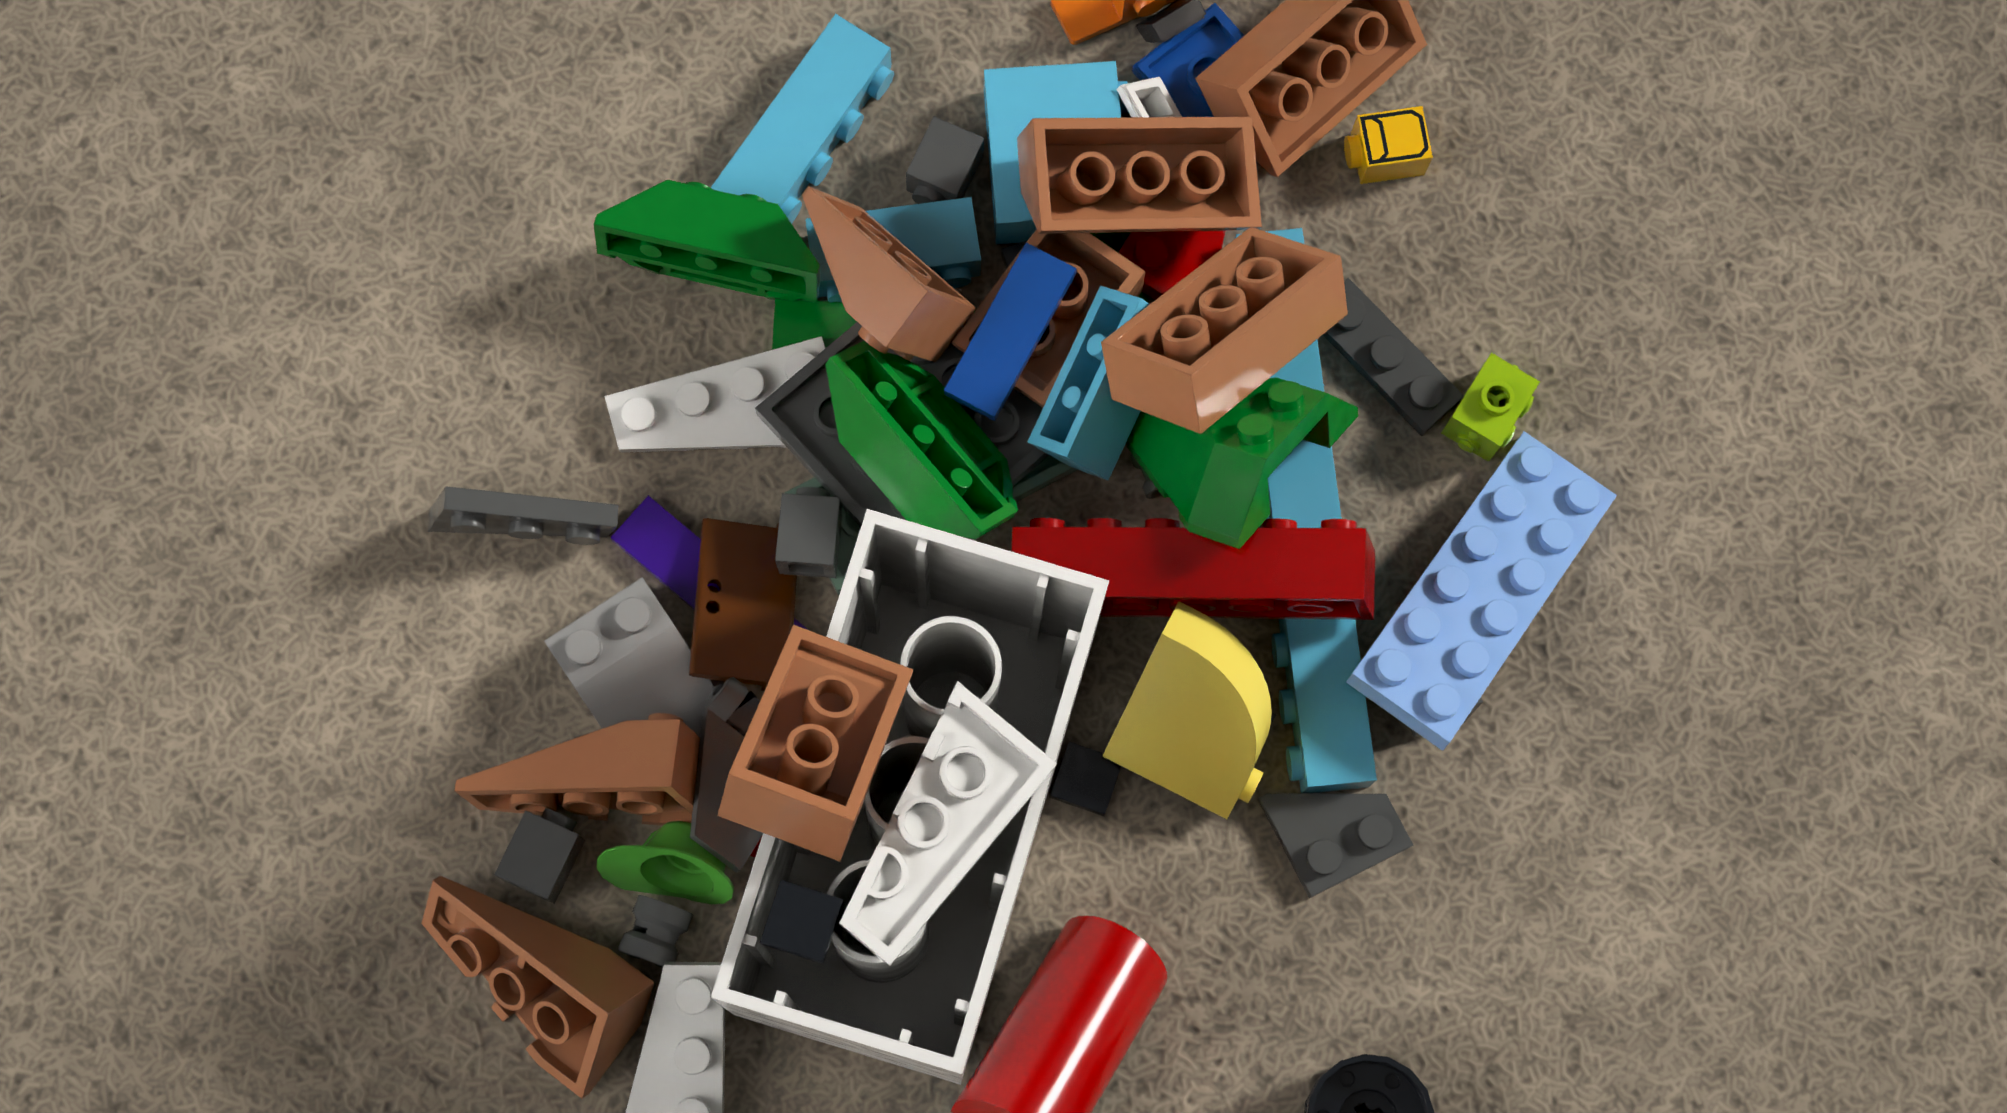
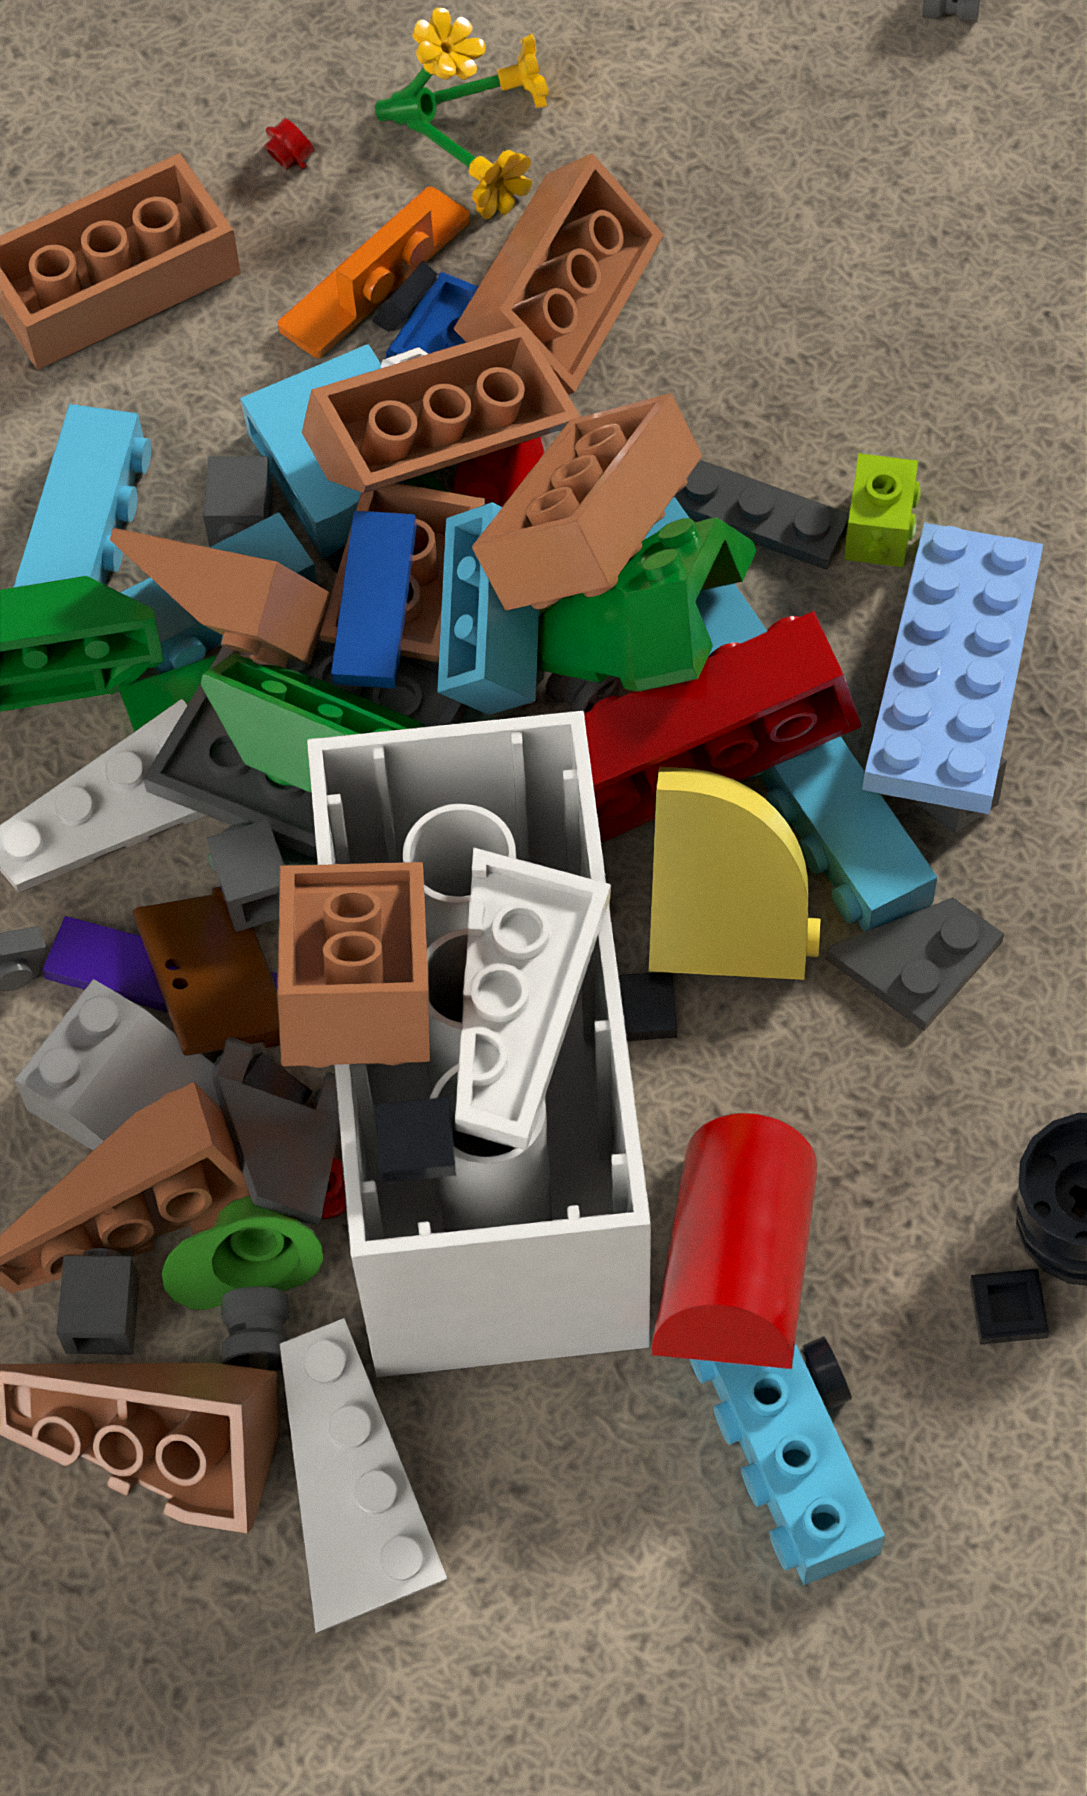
camera: 15 degrees left, 15 degrees down
(1389, 145) = (670, 325): yellow brick -> none

